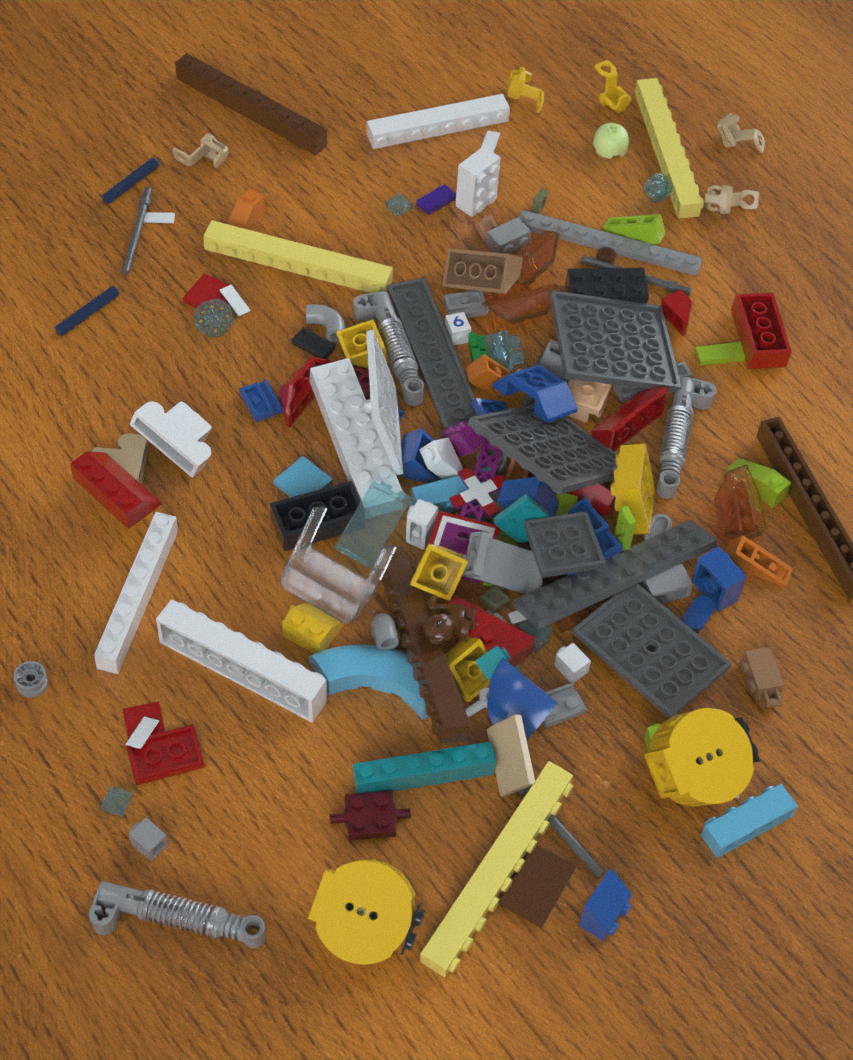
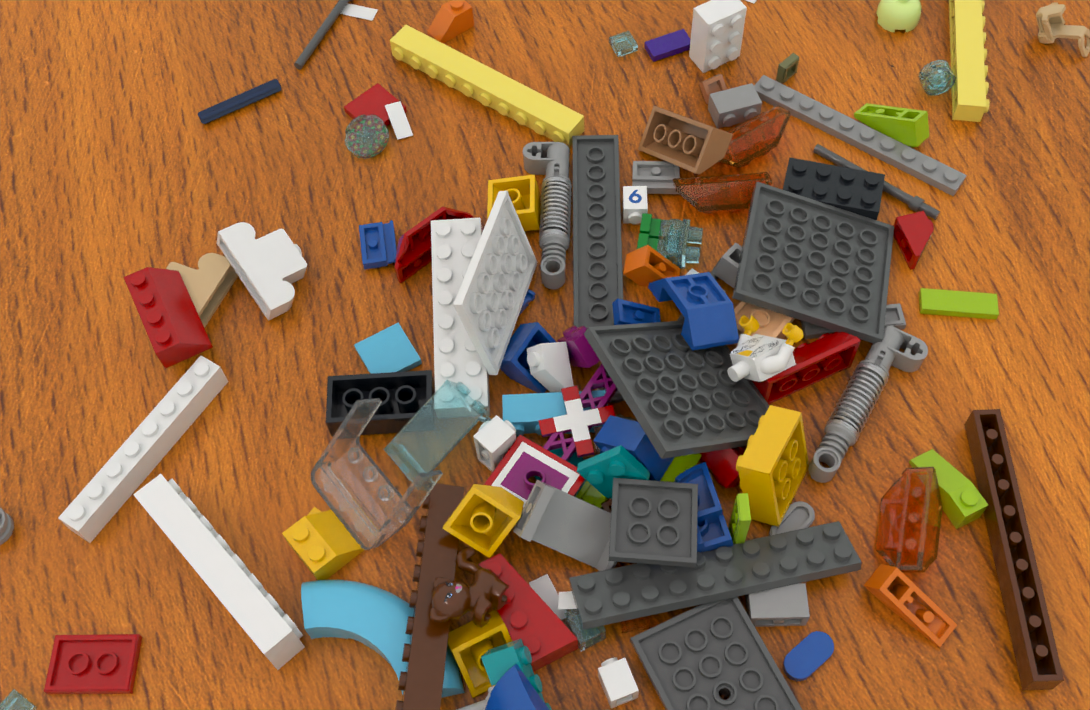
camera: 25 degrees right, 5 degrees up
(135, 714) = (91, 612): red sticker -> none
(142, 732) = (78, 629): white sticker -> none
(312, 344) = (465, 189): black tile -> none
(327, 317) = (488, 159): light grey cylinder -> none
(384, 631) = (395, 577): light grey cylinder -> none
(494, 599) = (554, 565): olive tile -> none
(601, 415) = (761, 355): none -> white torso
(606, 255) = (847, 149): reddish brown tile -> none
(719, 578) = (848, 617): blue brick -> none
(727, 199) = (1022, 107): tan piece -> none
(761, 330) = (1012, 286): red brick -> none

